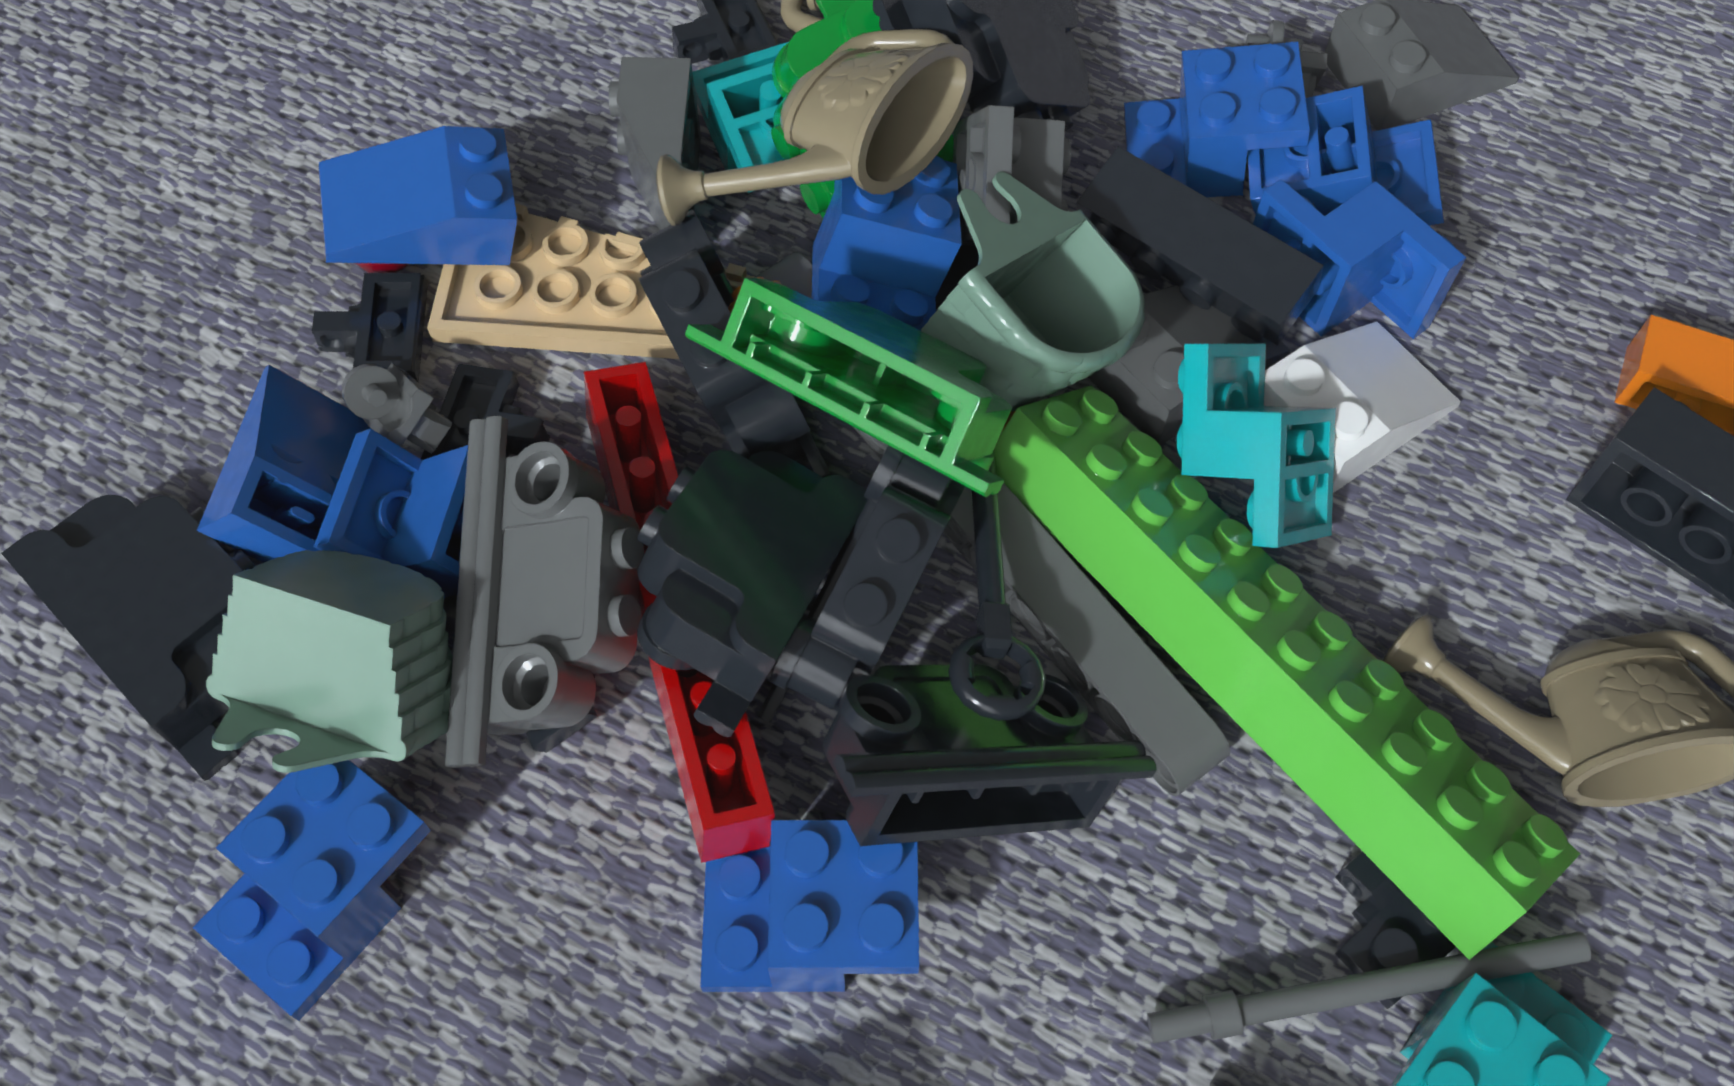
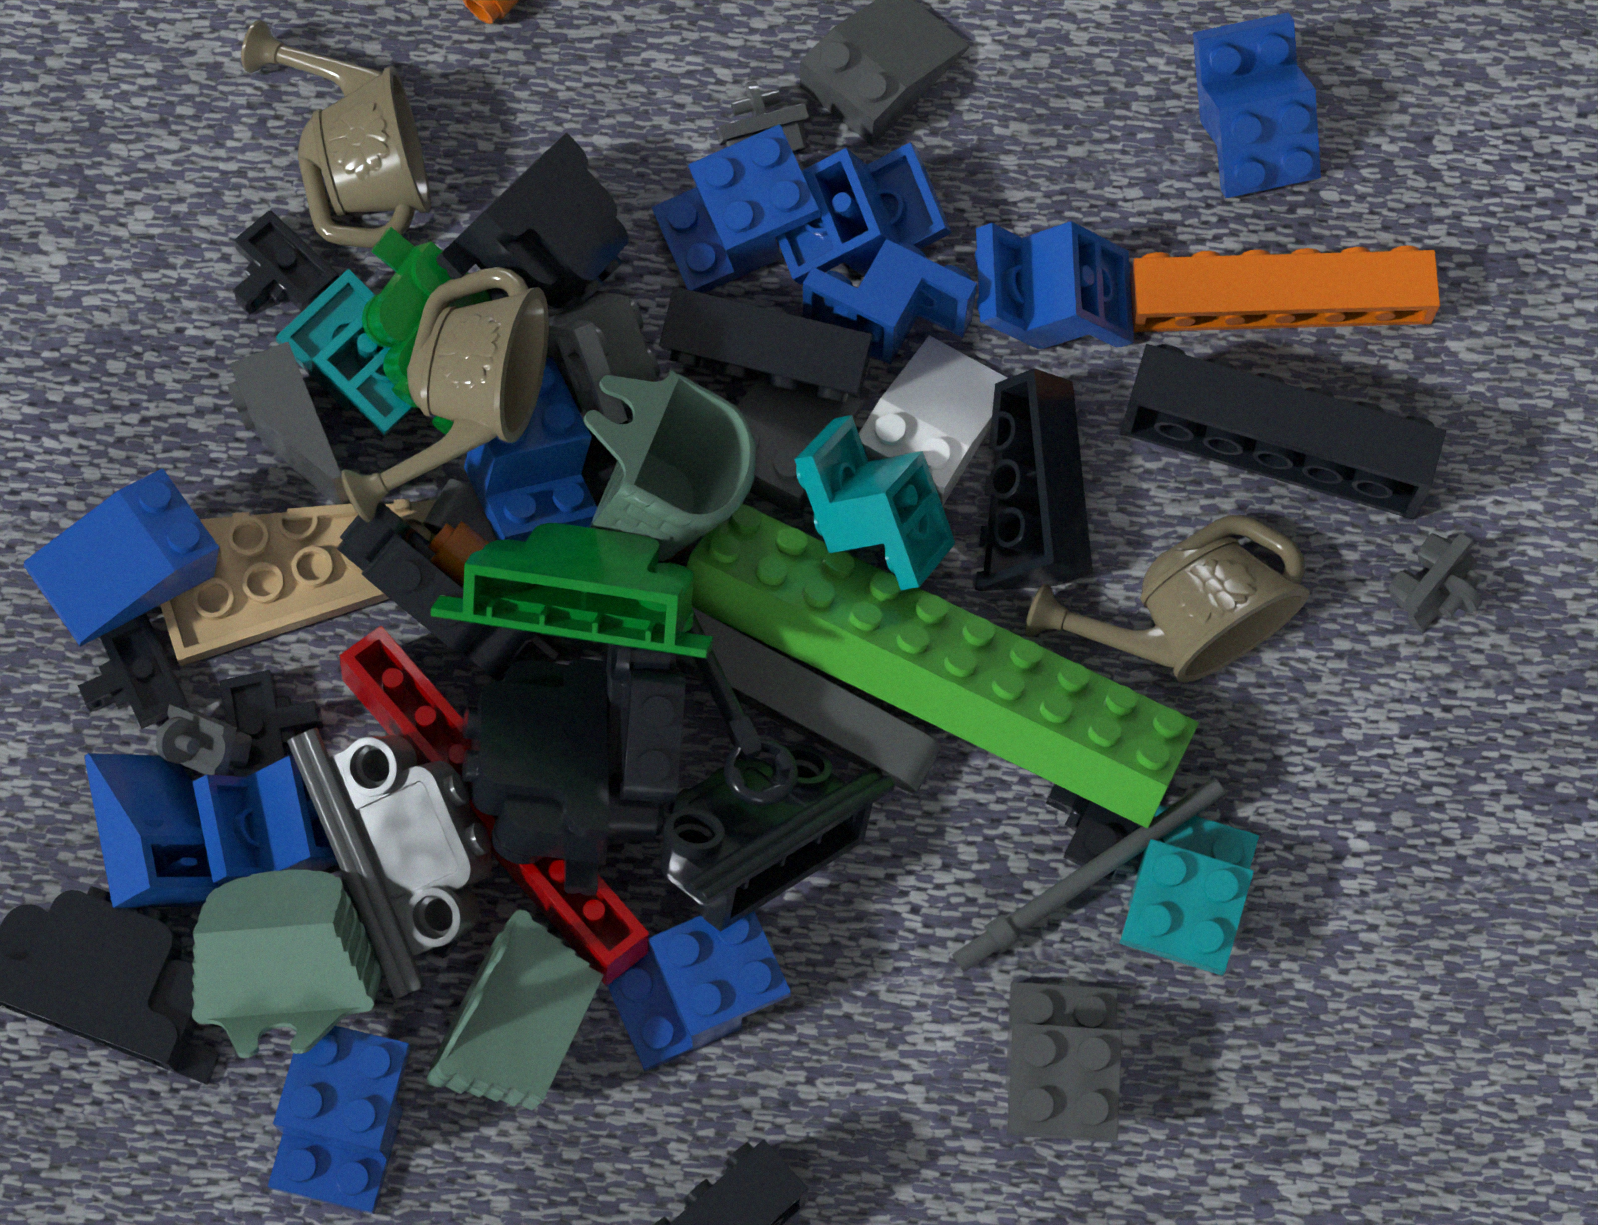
camera: 25 degrees left, 10 degrees up
(565, 847) = (516, 1017): none -> sand green piece
(1449, 512) = (1036, 487): none -> black wedge
(1545, 311) = (1054, 285): none -> blue bracket

